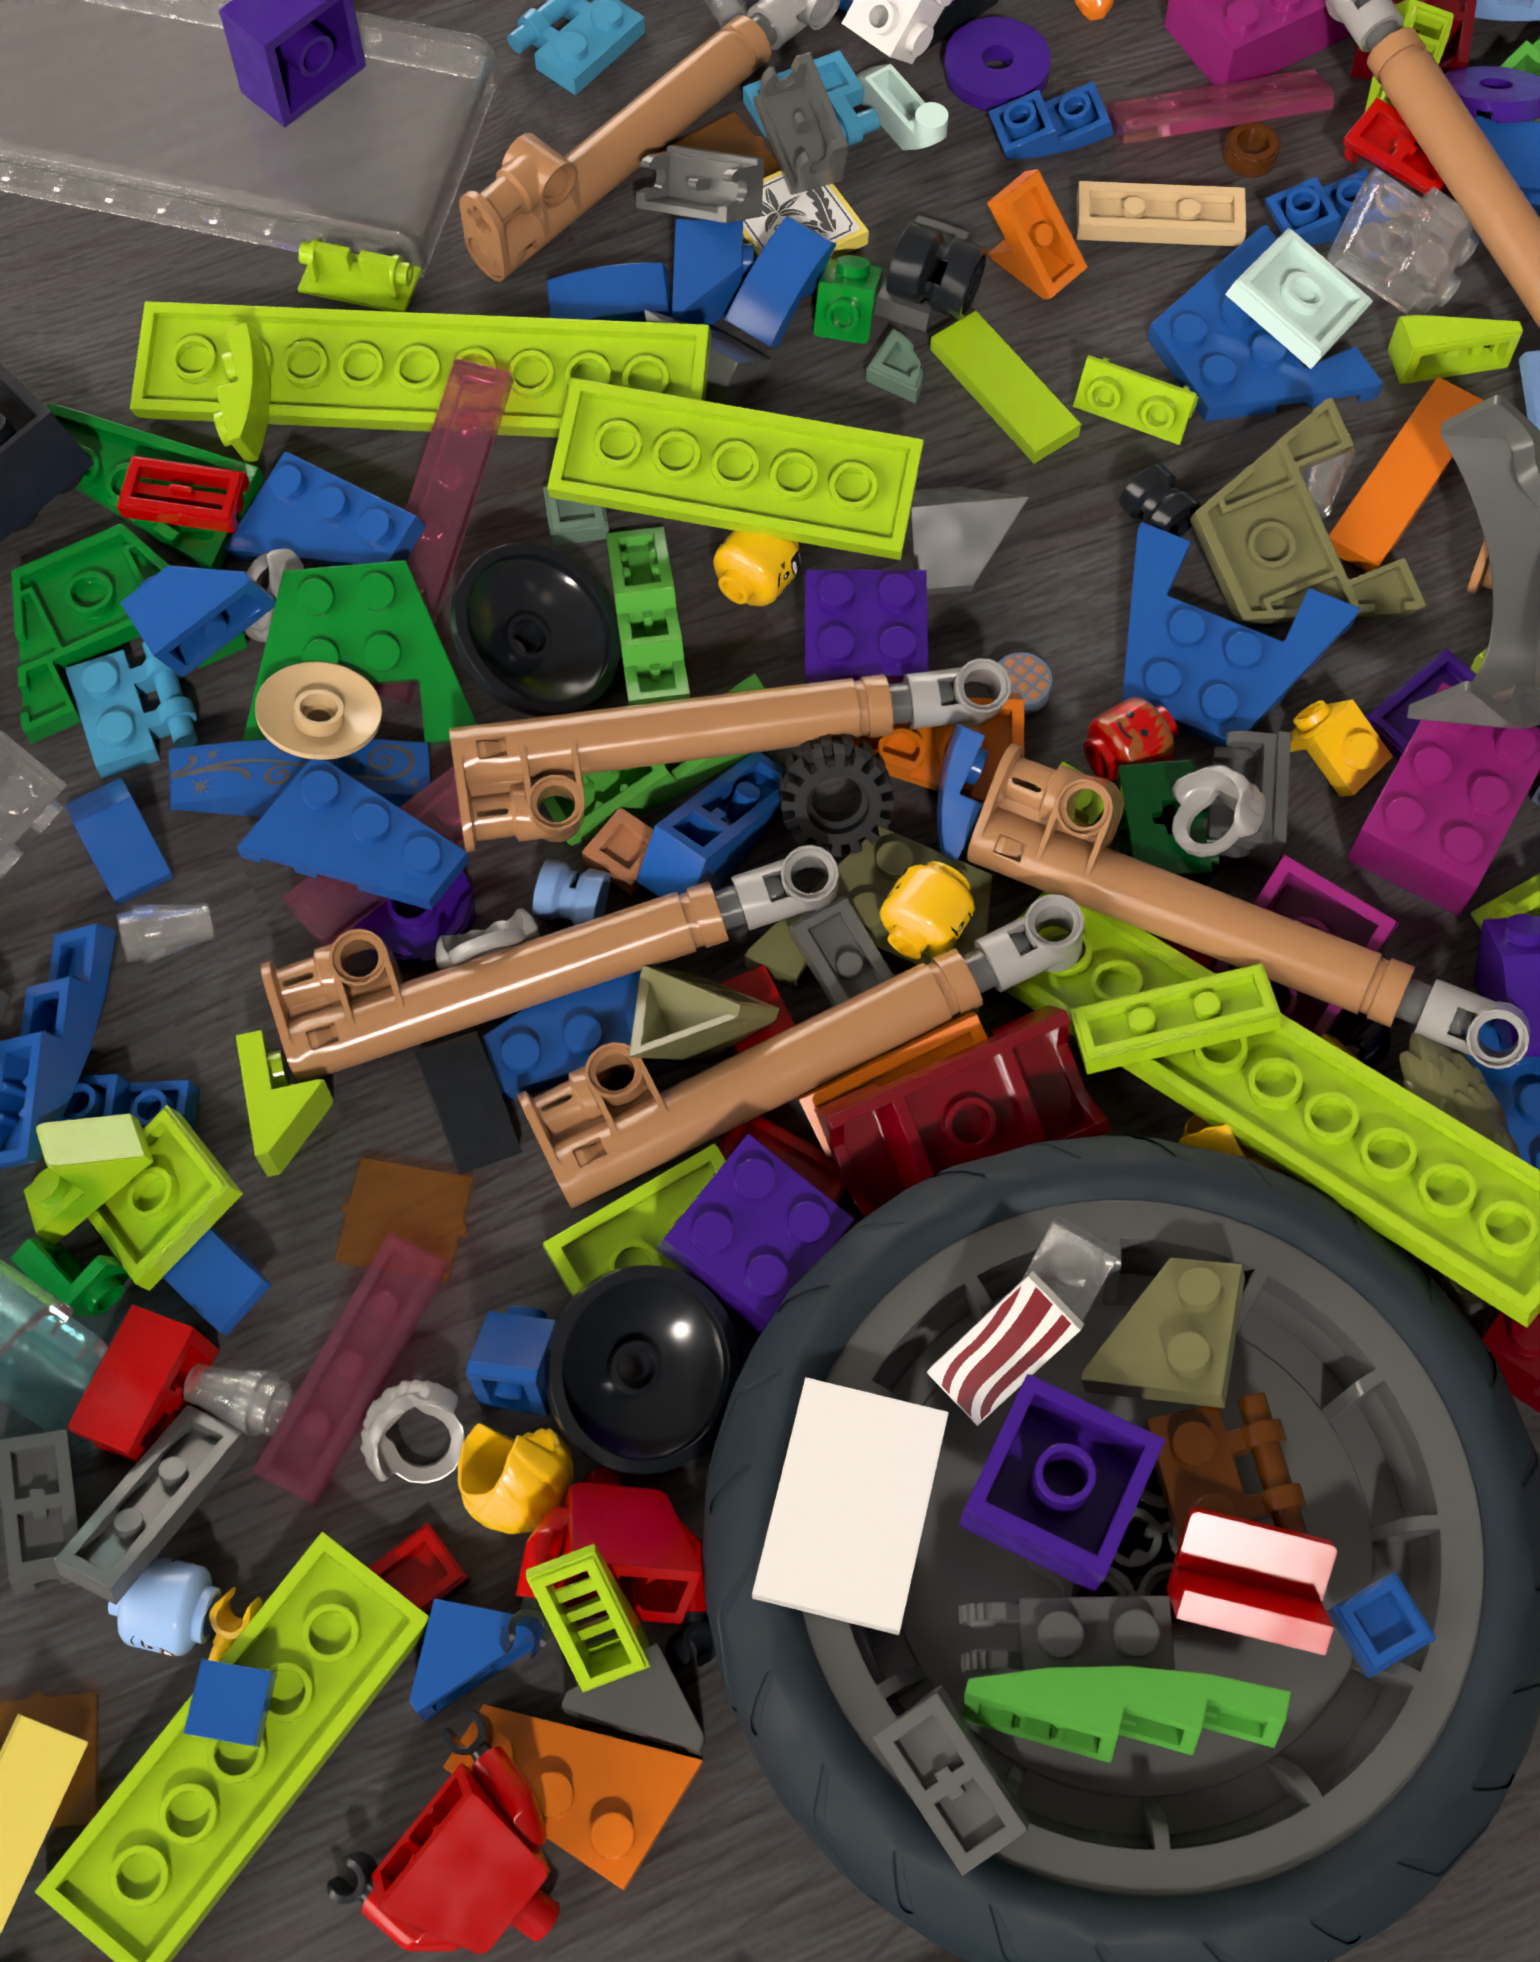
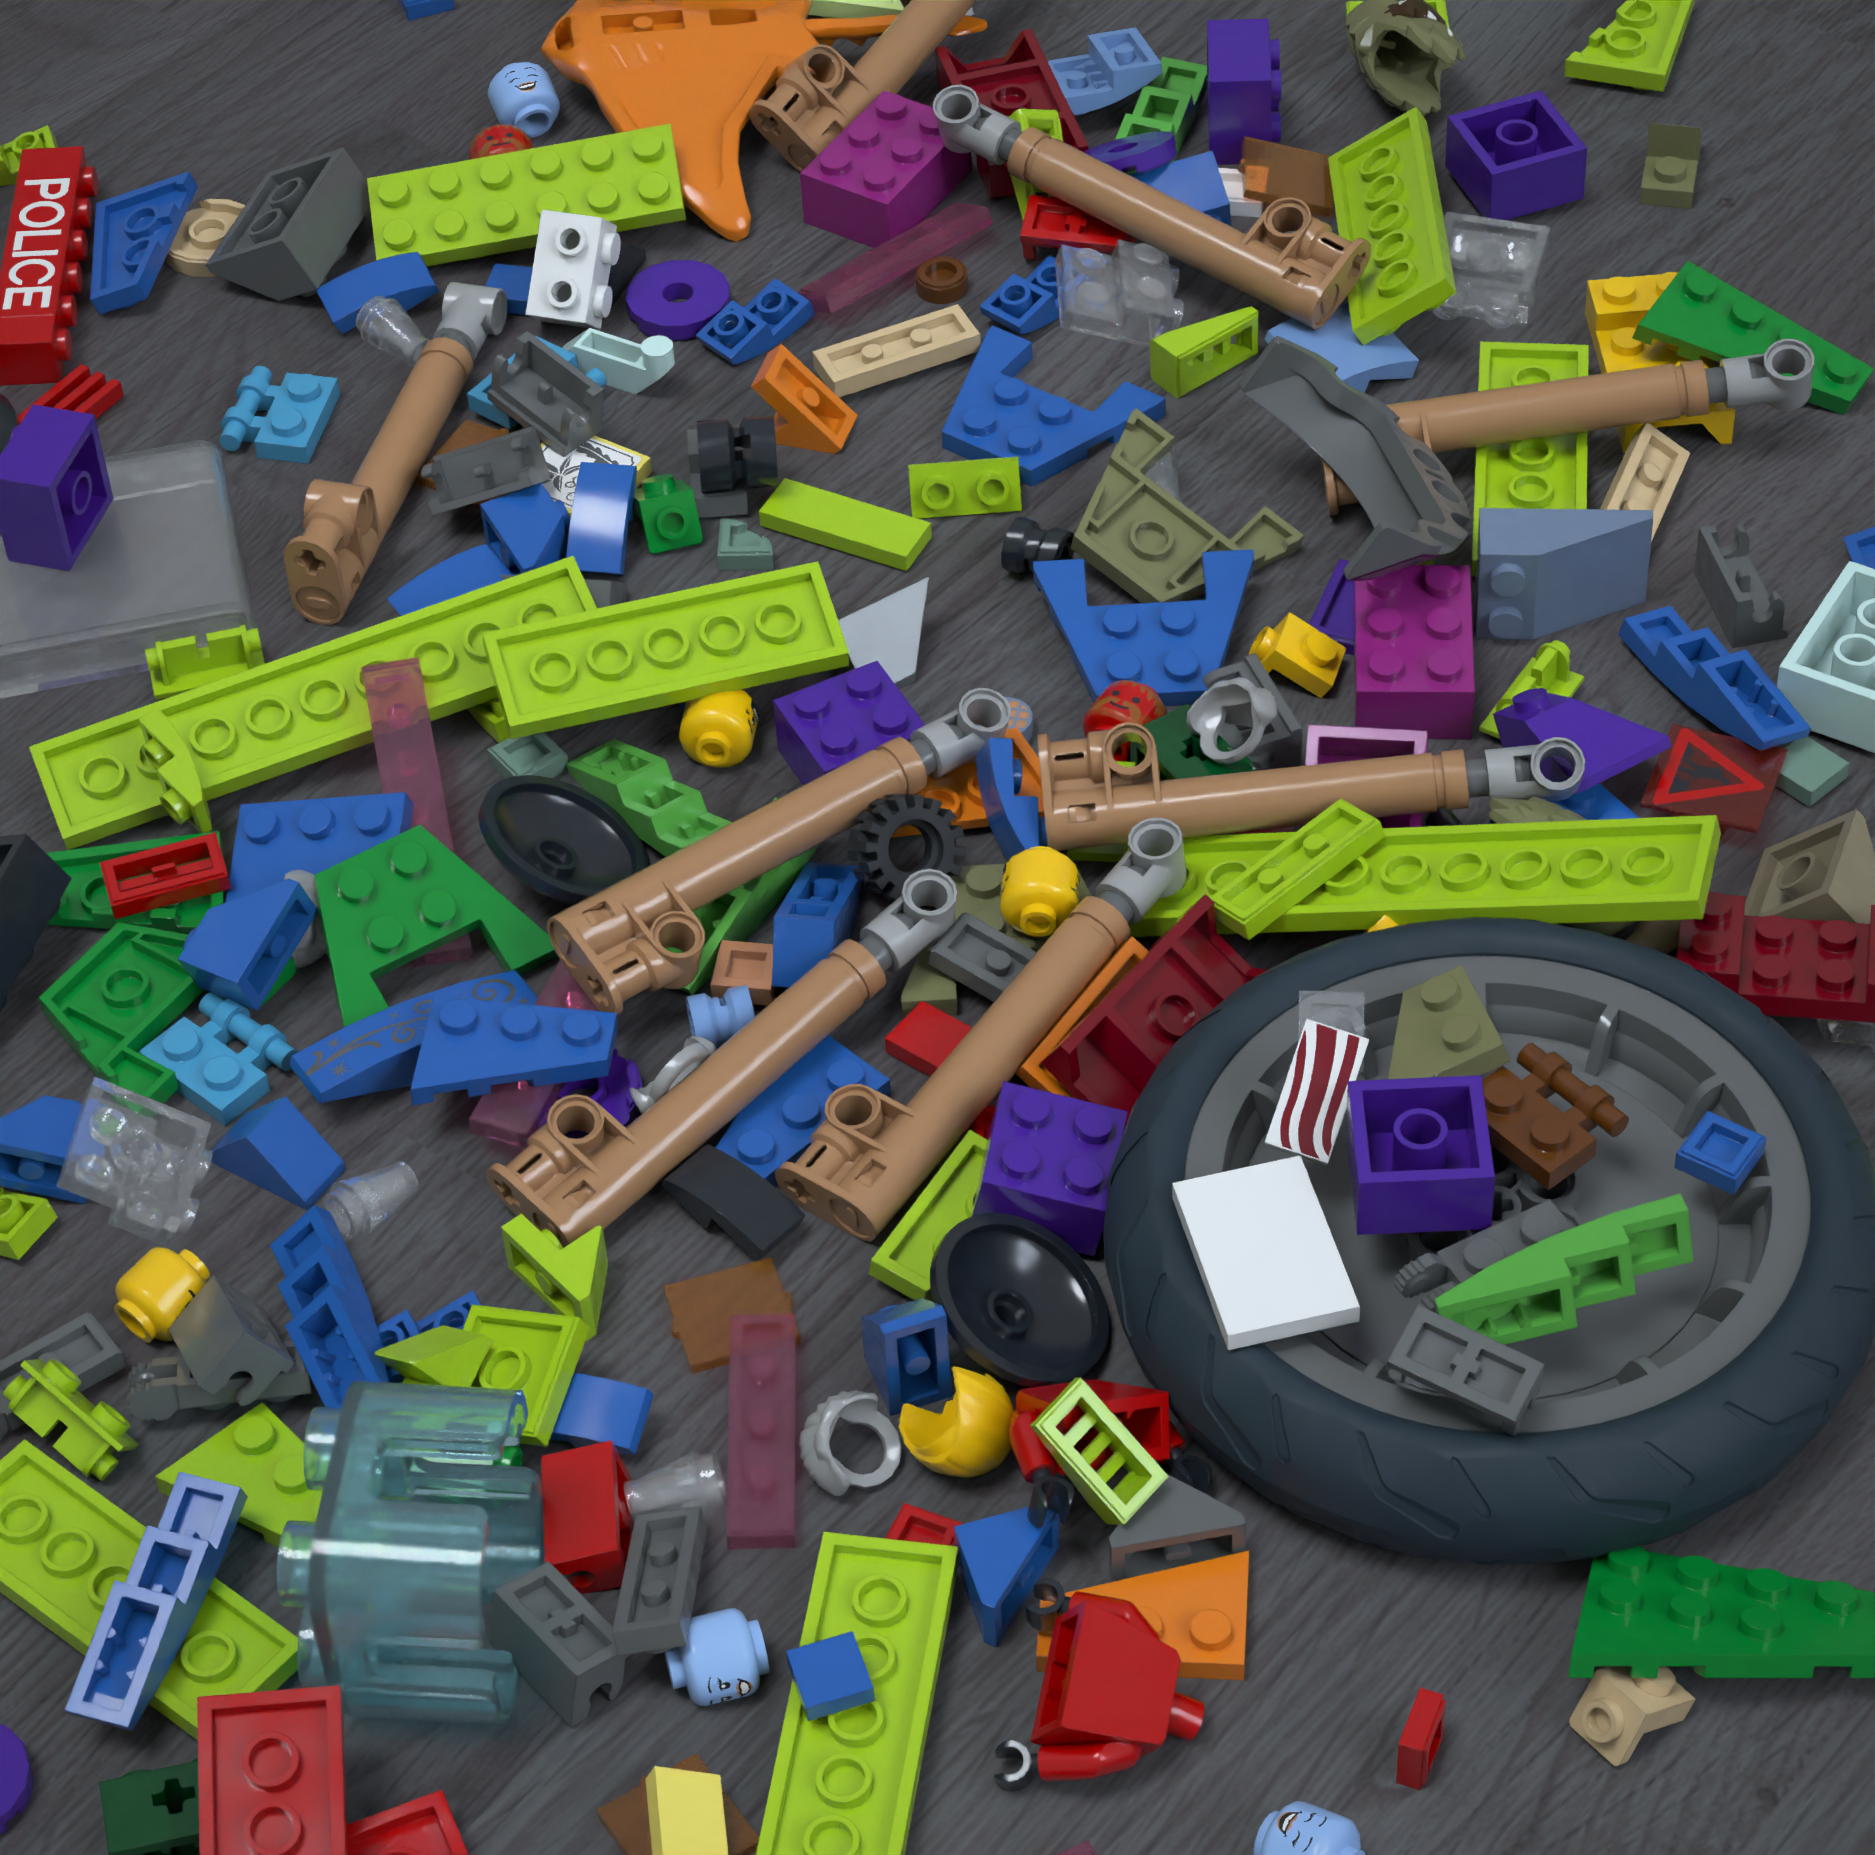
camera: 25 degrees left, 20 degrees down
(227, 1625) = (784, 1674): yellow hand -> none
(318, 710) = (414, 964): tan dish -> none
(692, 1016) = (898, 1046): olive slope -> none
(1253, 1580) = (1603, 1151): panel -> none
(1299, 297) = (1056, 362): light aqua tile -> none
(1400, 480) = (1226, 456): orange tile -> none

